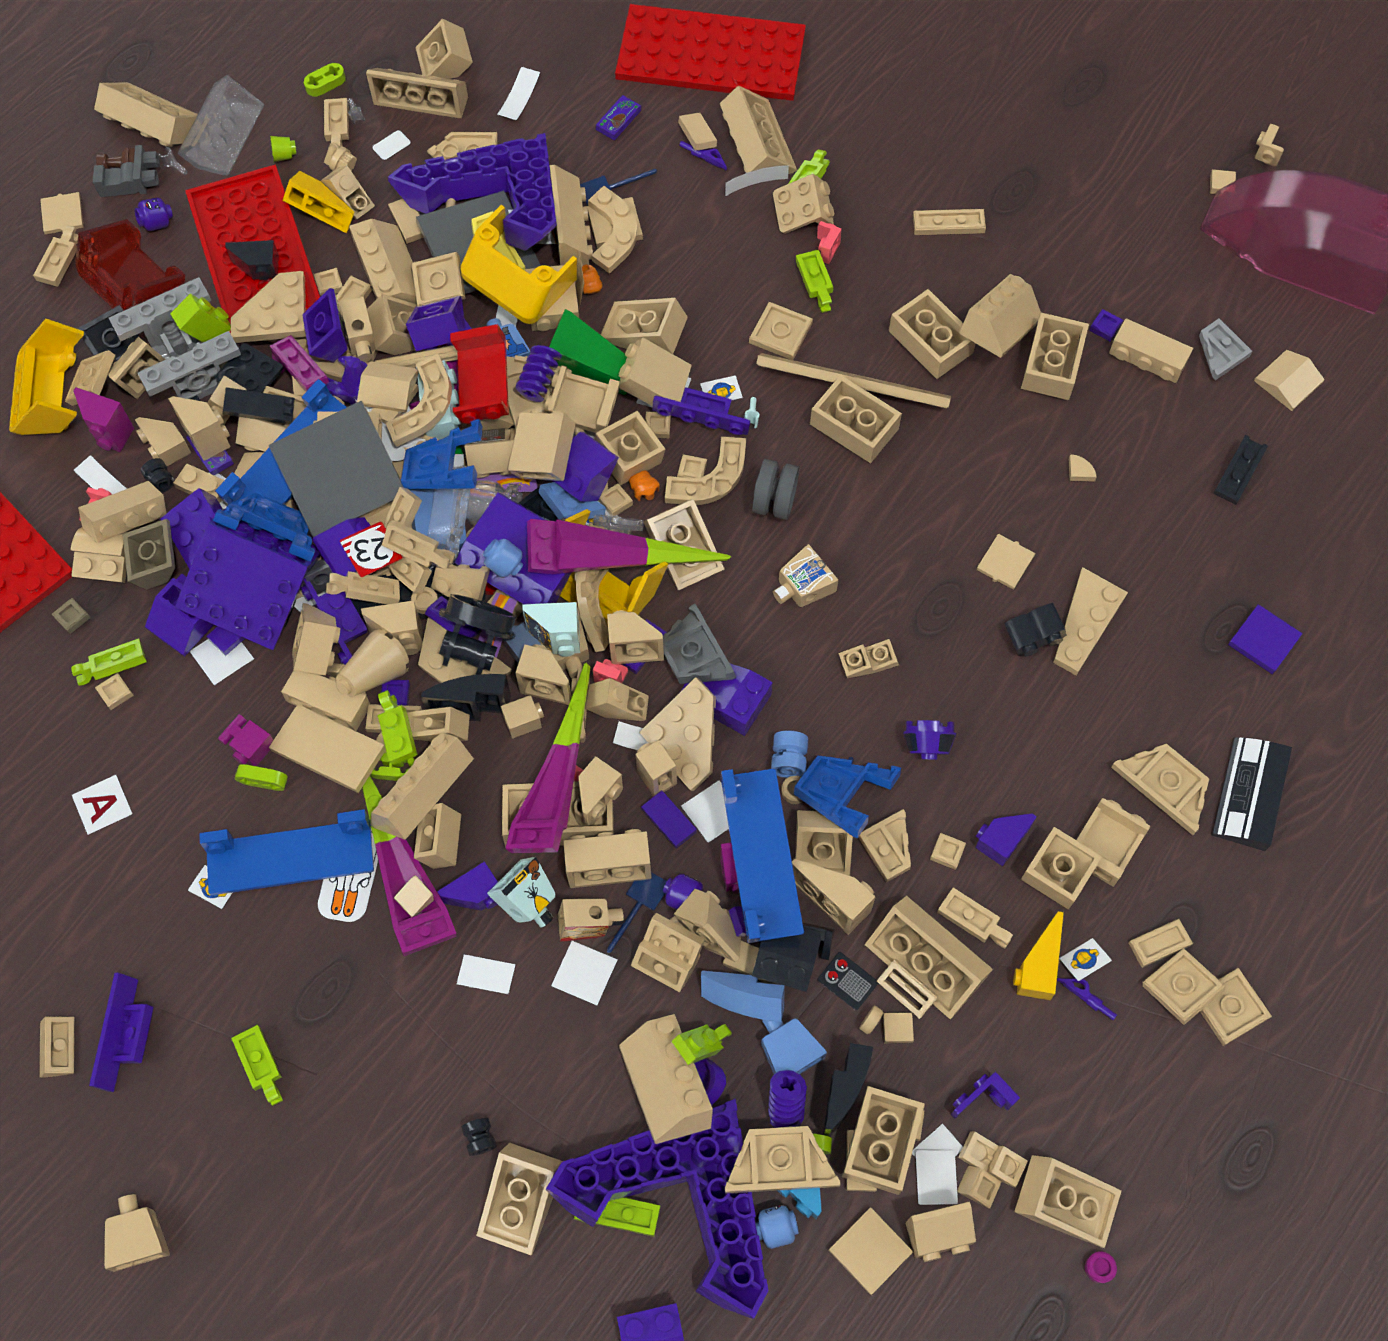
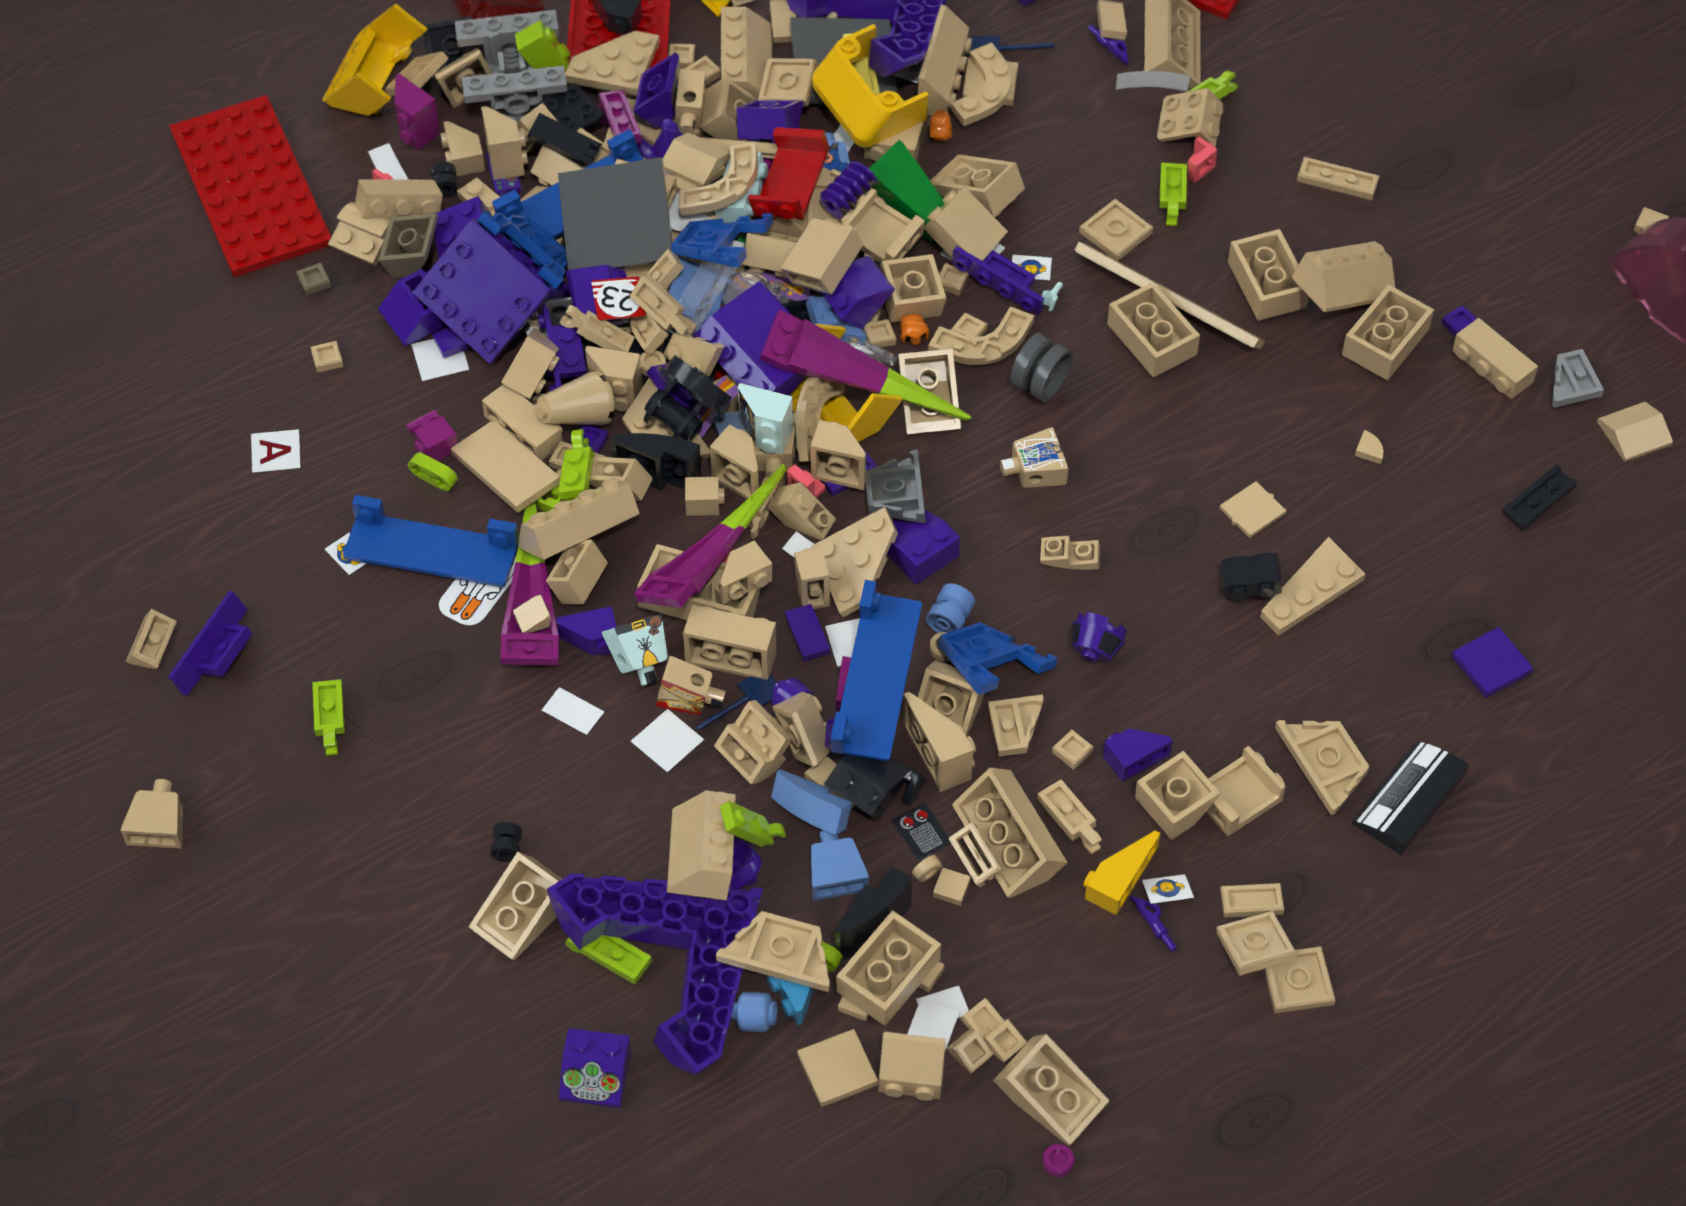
camera: 20 degrees right, 10 degrees down
(110, 662) = (333, 328): lime plate -> none
(493, 434) = (778, 234): black sticker -> none
(503, 558) = (739, 338): medium blue head -> none
(787, 1099) = (812, 899): dark purple piece -> none
(1000, 1094) = (1012, 961): dark purple bracket -> none

